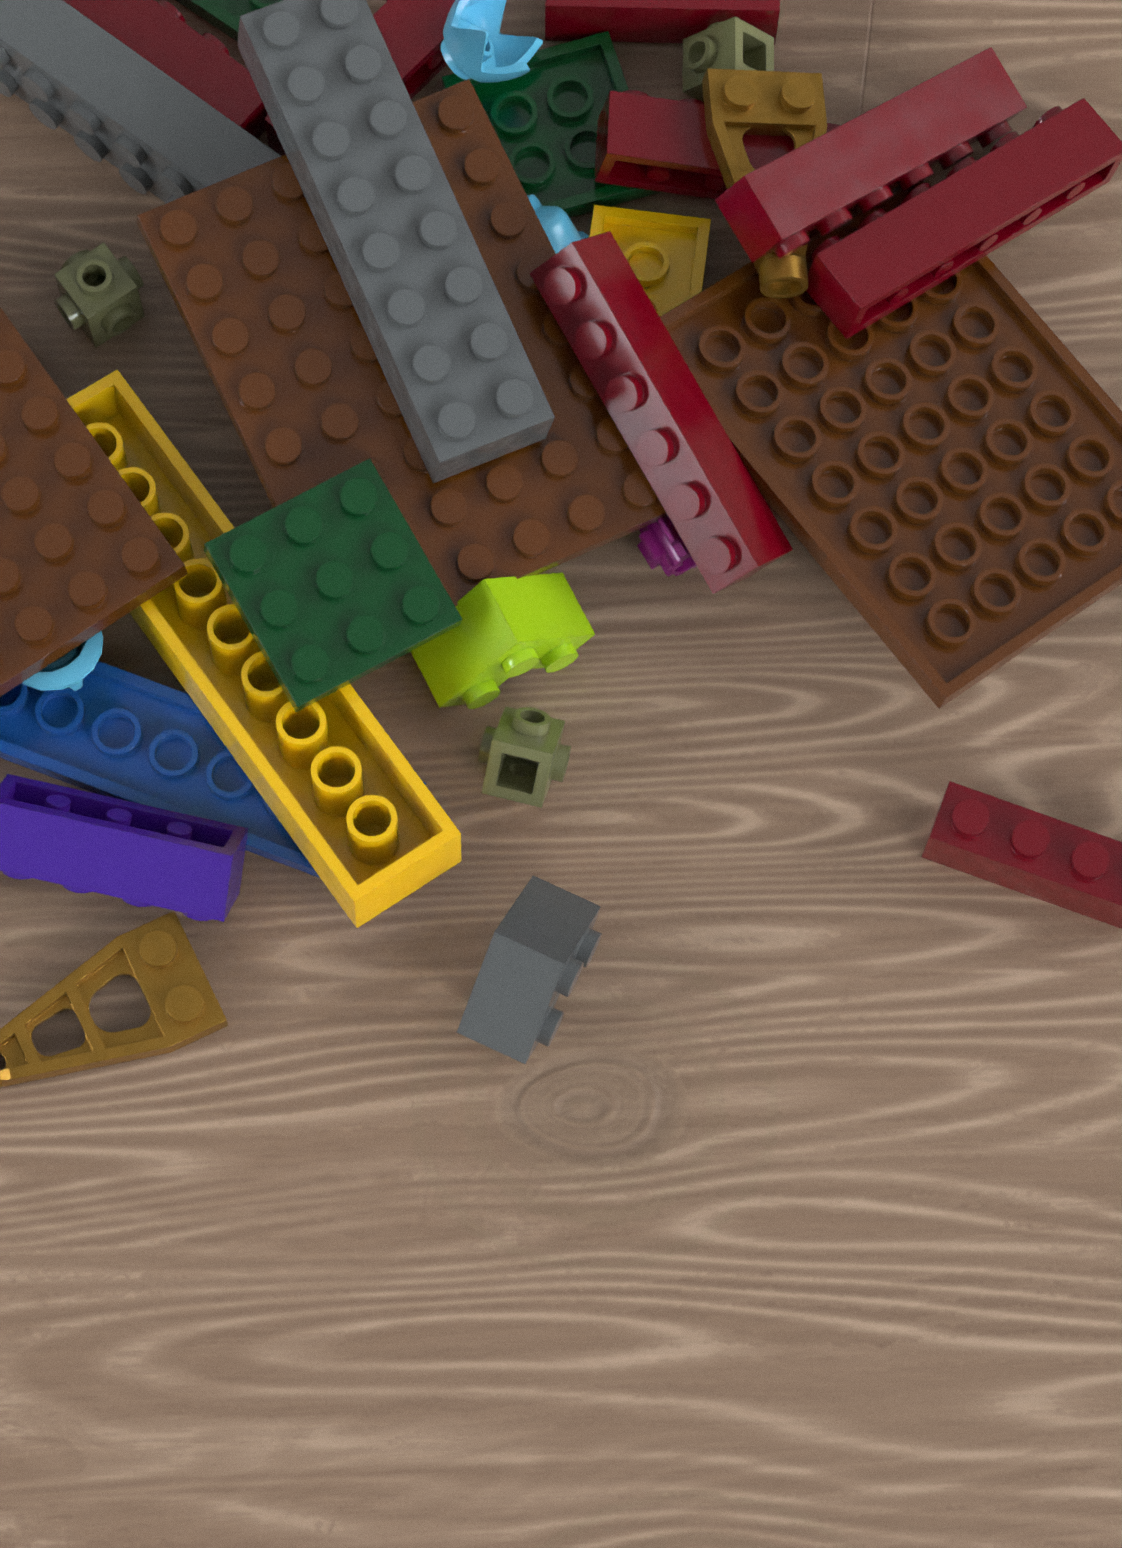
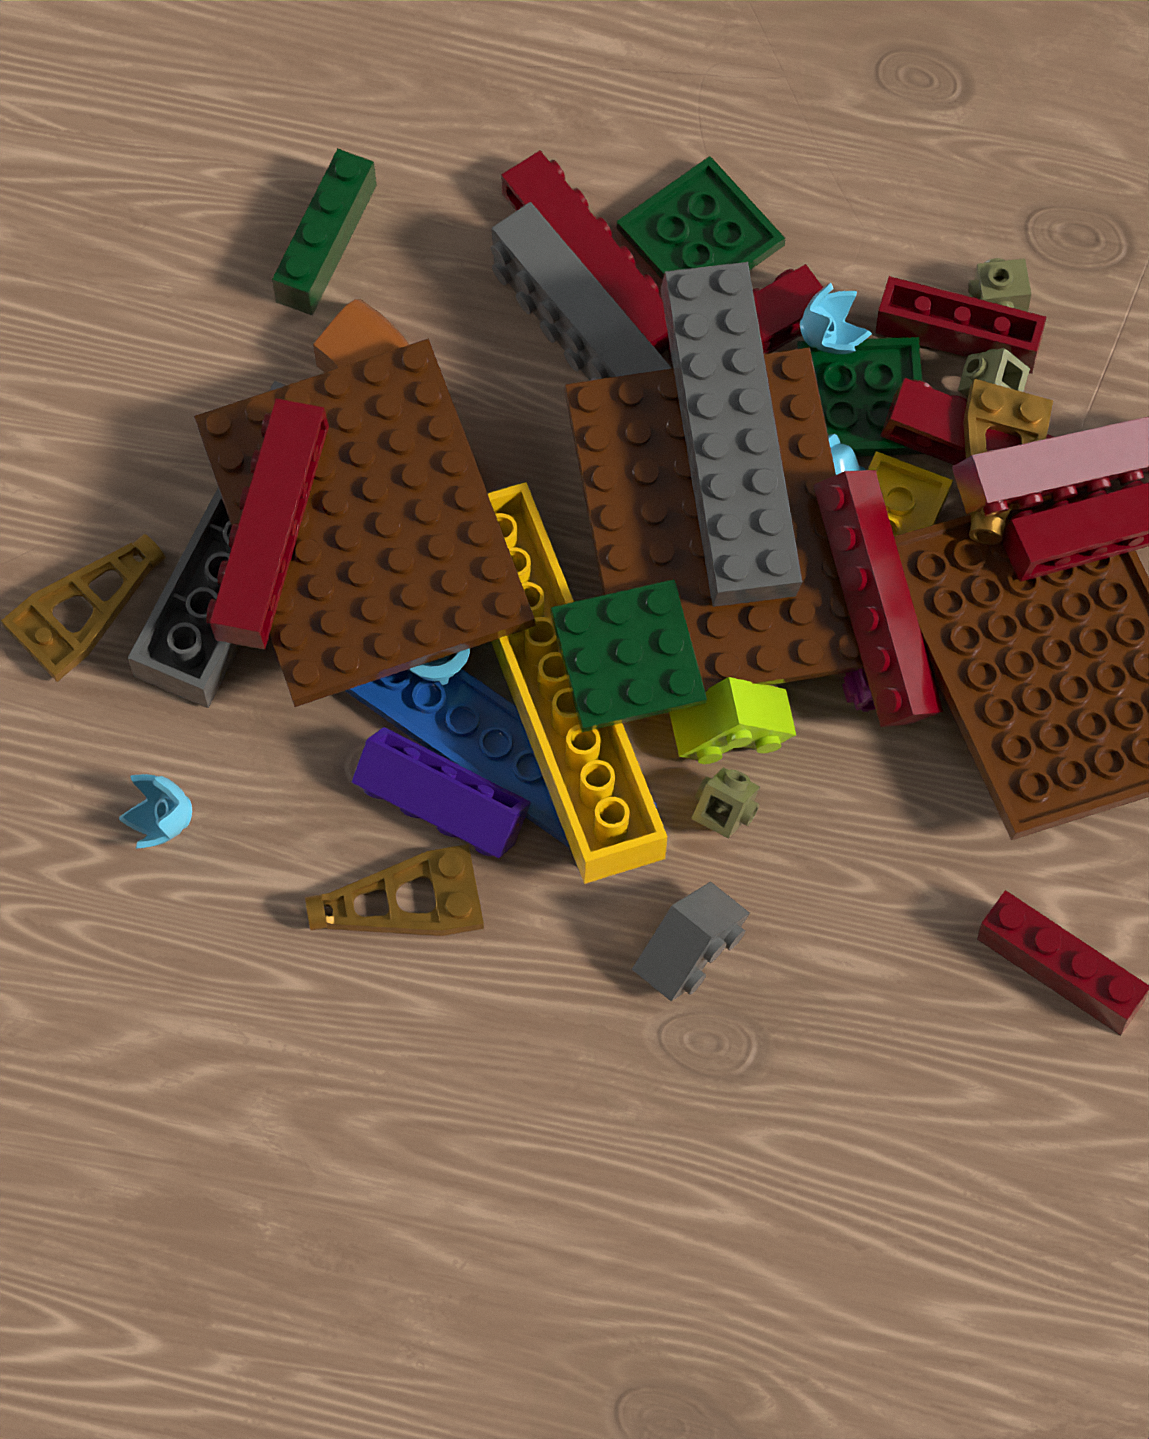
camera: 20 degrees right, 5 degrees down
(99, 293) = (528, 430): olive brick -> none

